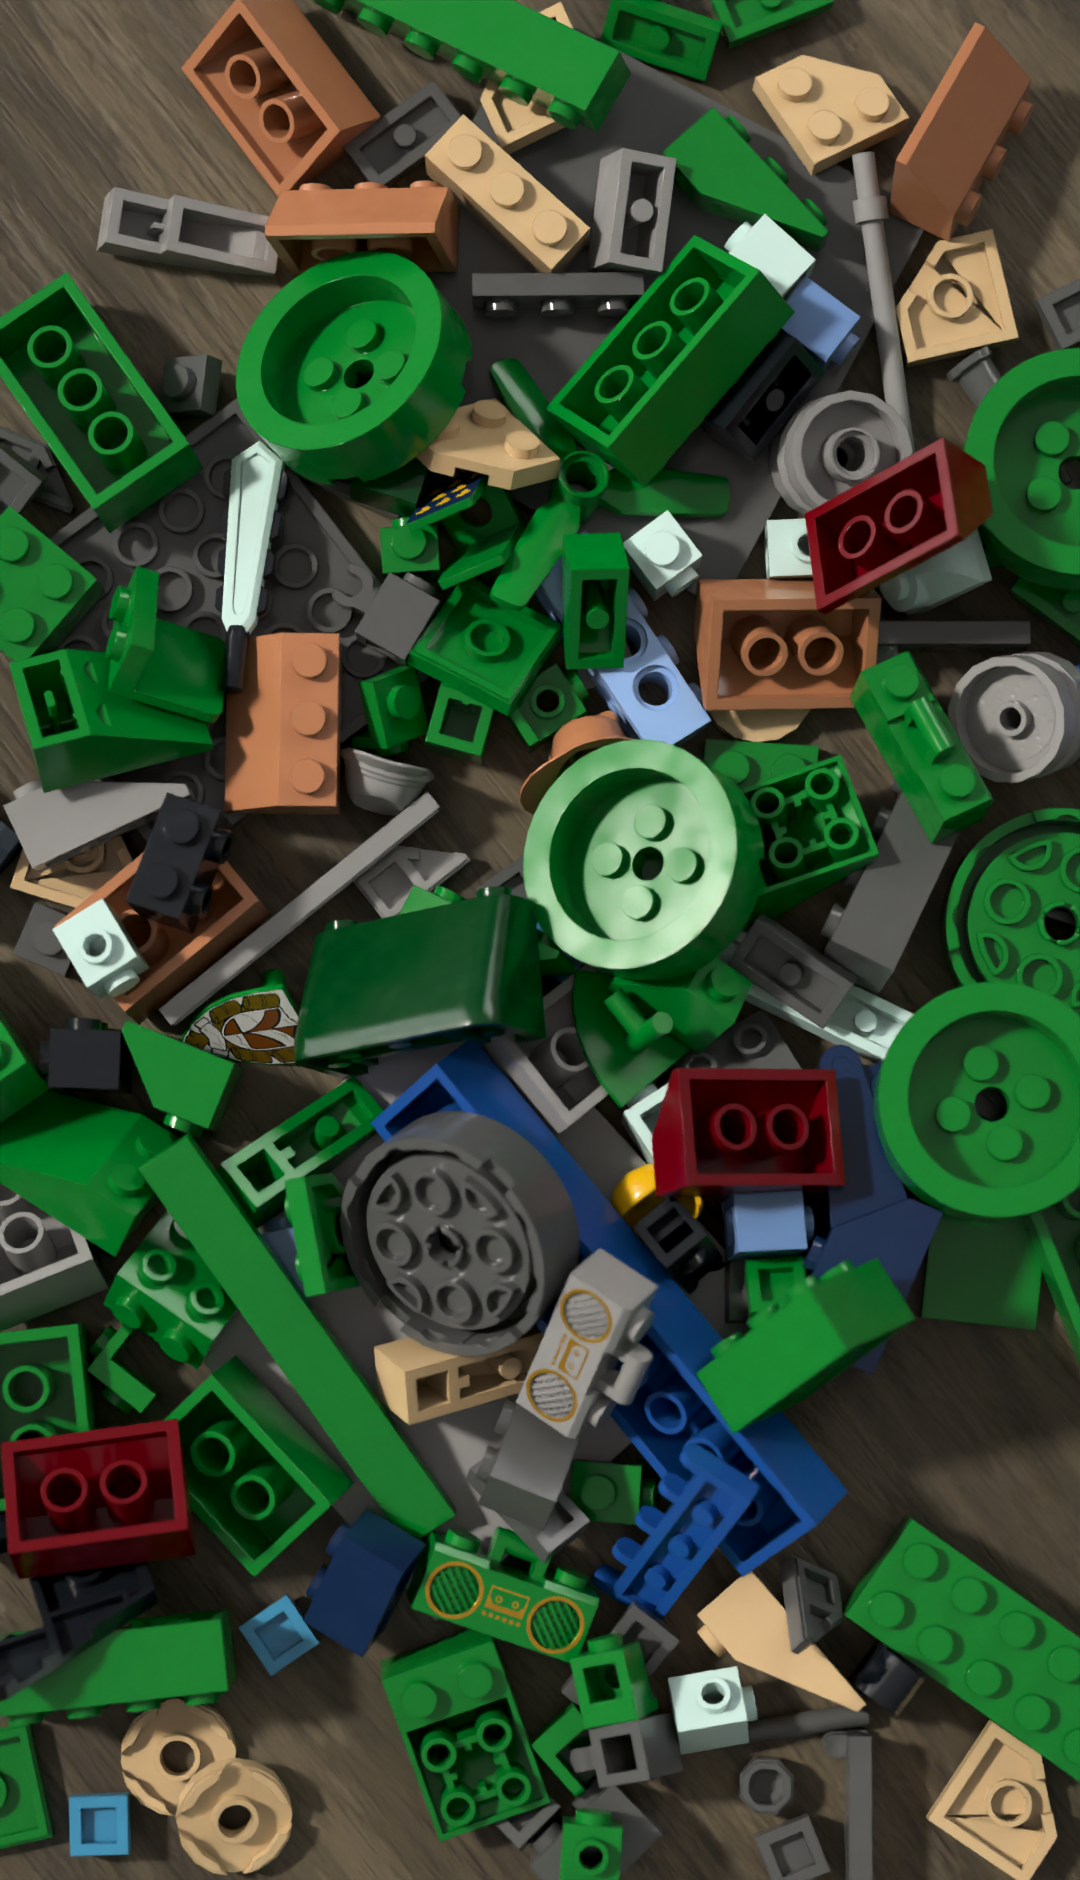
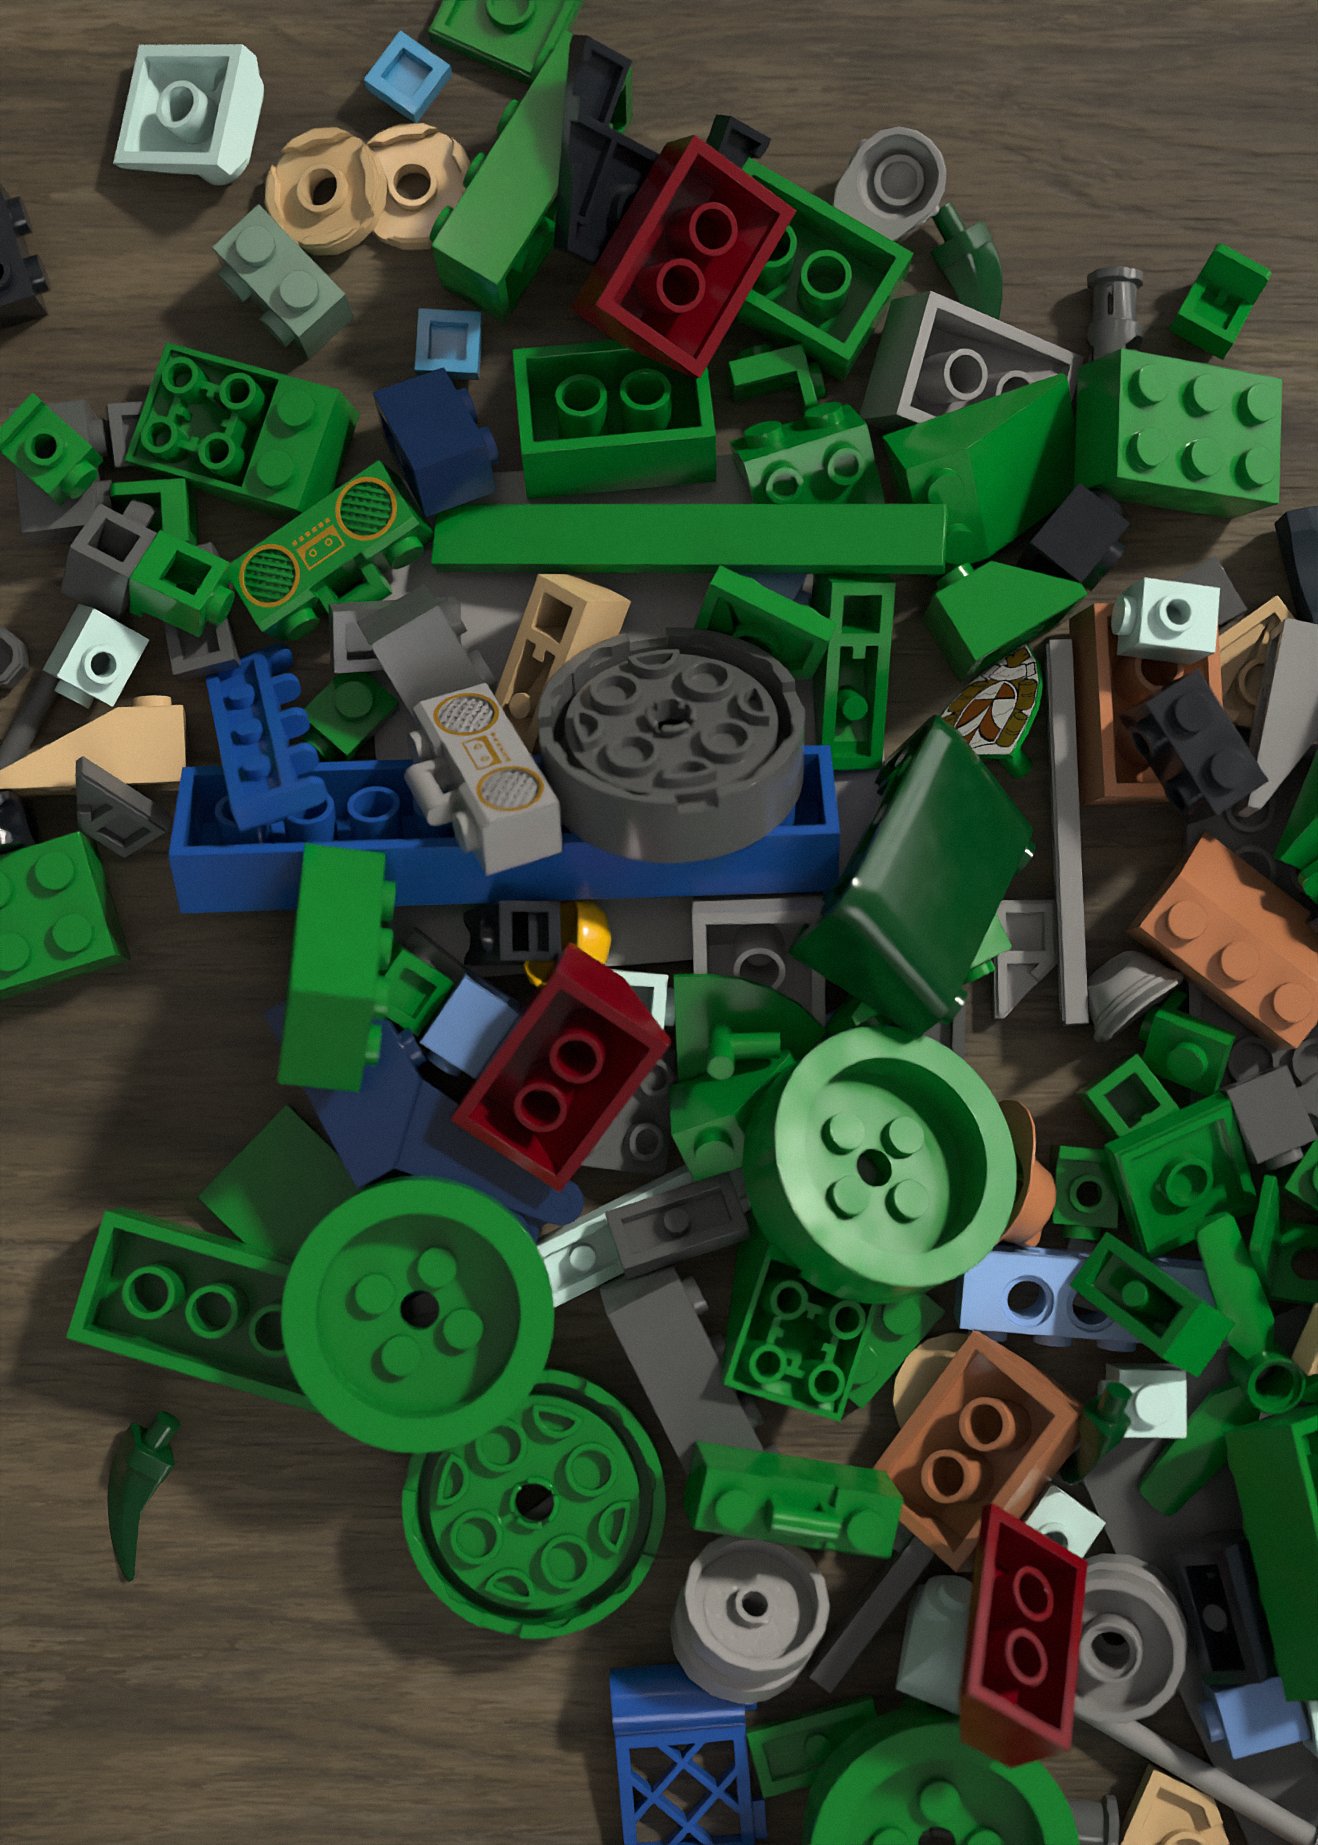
camera: 125 degrees right, 0 degrees up
(327, 1793) = (283, 281): none -> sand green brick
(707, 572) = (1101, 1429): none -> dark green bar

